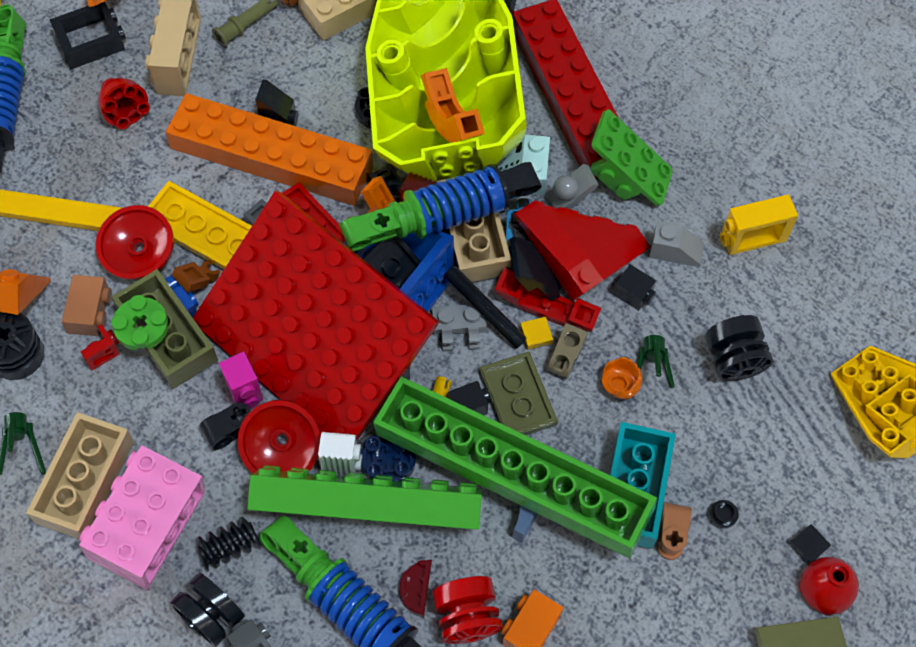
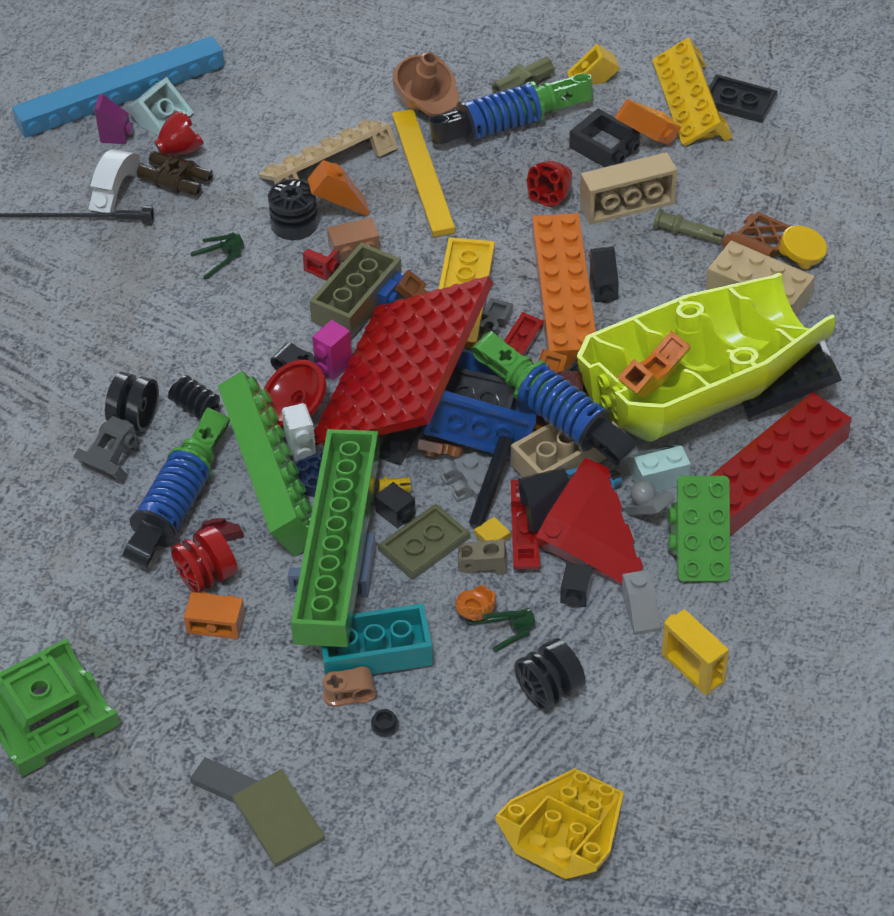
camera: 70 degrees right, 15 degrees down
(80, 475) = (206, 292): tan brick -> none
(128, 230) = (422, 241): red dish -> none
(140, 308) = (338, 255): bright green plate -> none
(142, 516) = (187, 337): bright pink brick -> none
(810, 544) = (387, 798): black tile -> none
(824, 591) = (352, 820): red piece -> none

